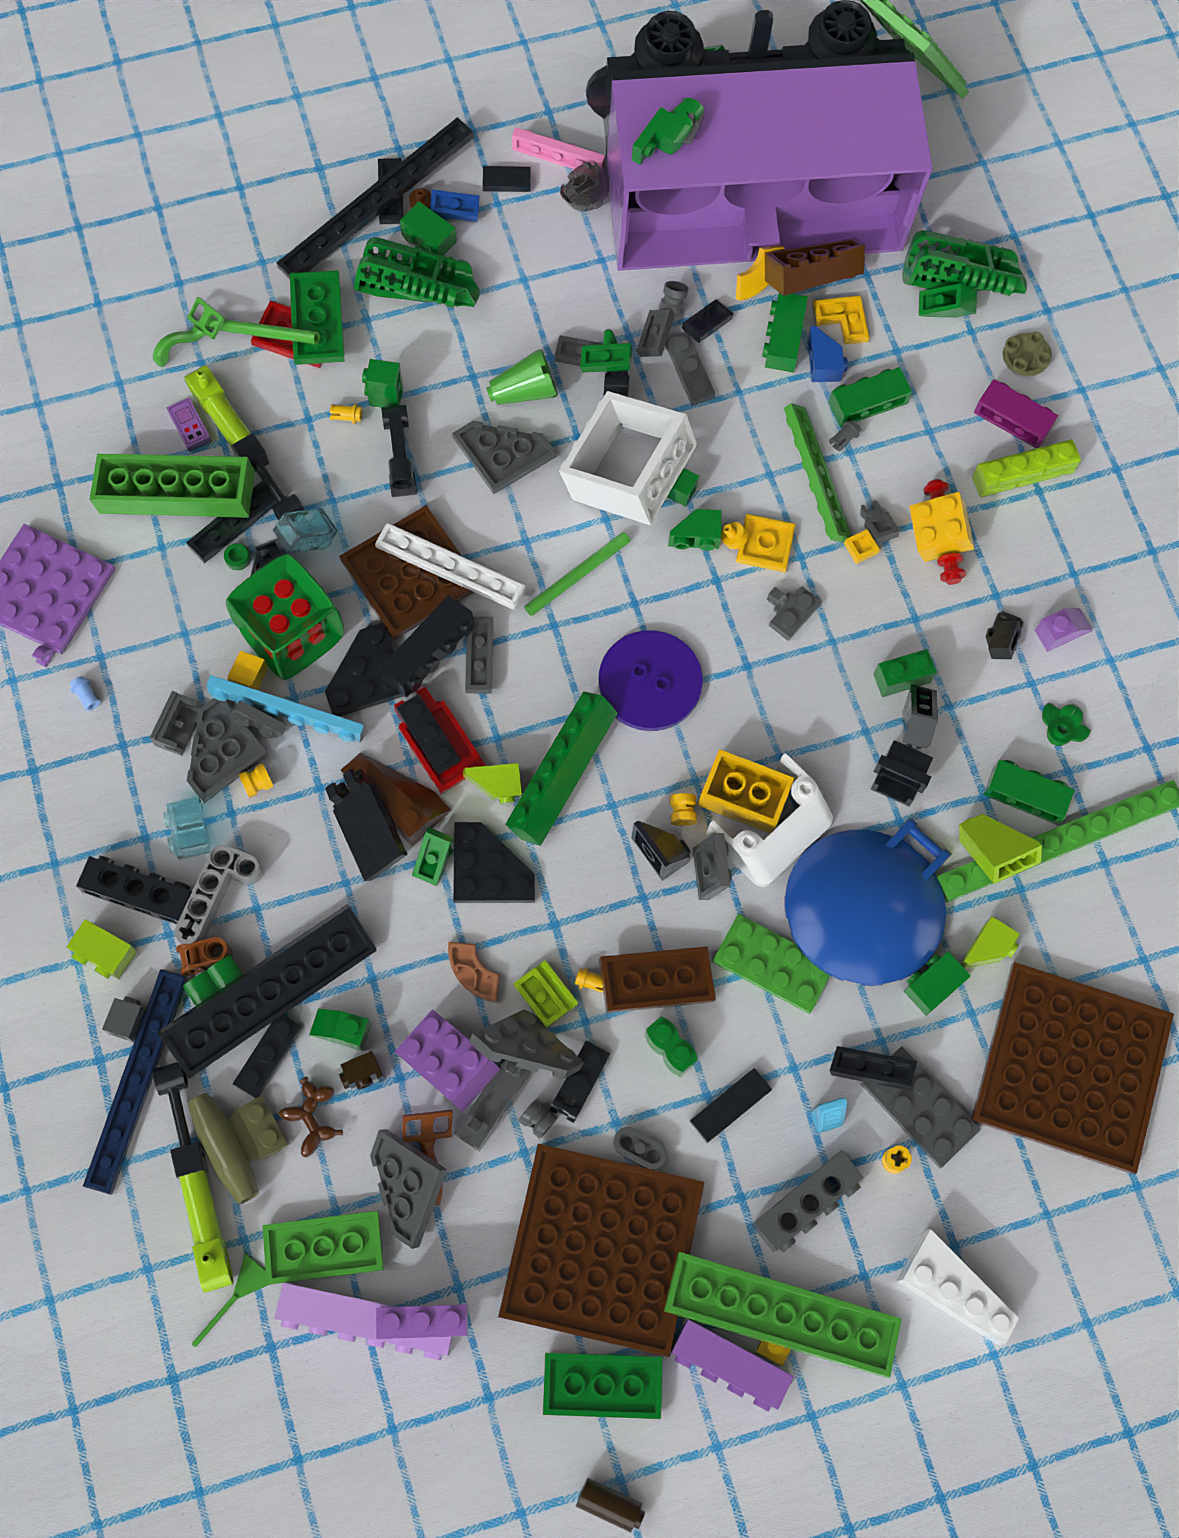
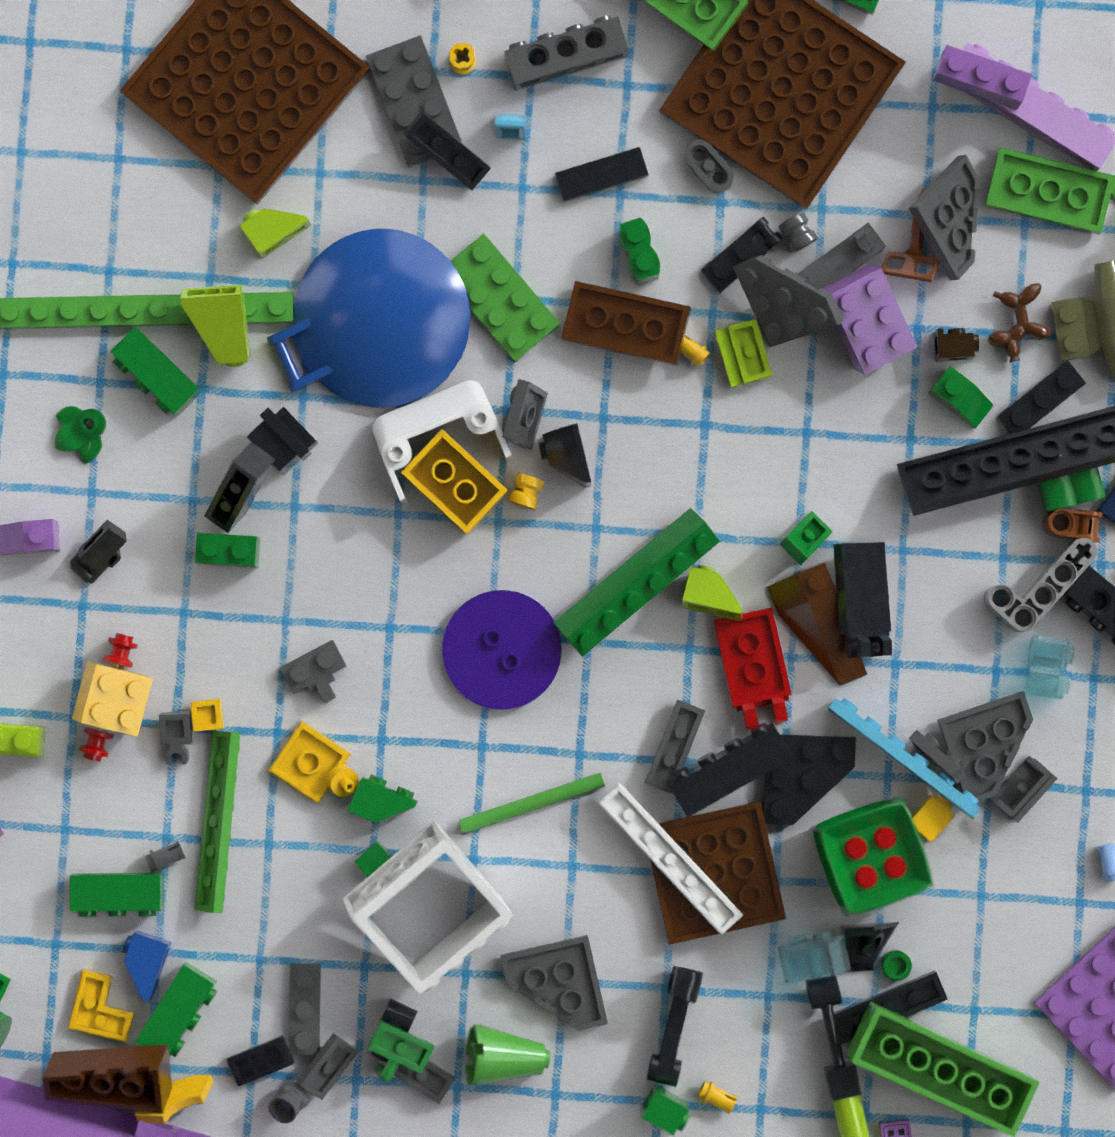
camera: 155 degrees left, 15 degrees up
(256, 780) = (960, 692): yellow wheel -> none
(428, 735) = (763, 671): black plate -> none
(471, 972) = (809, 406): nougat tile -> none
(488, 869) = (752, 507): black plate -> none
(936, 983) = (344, 213): green brick -> none

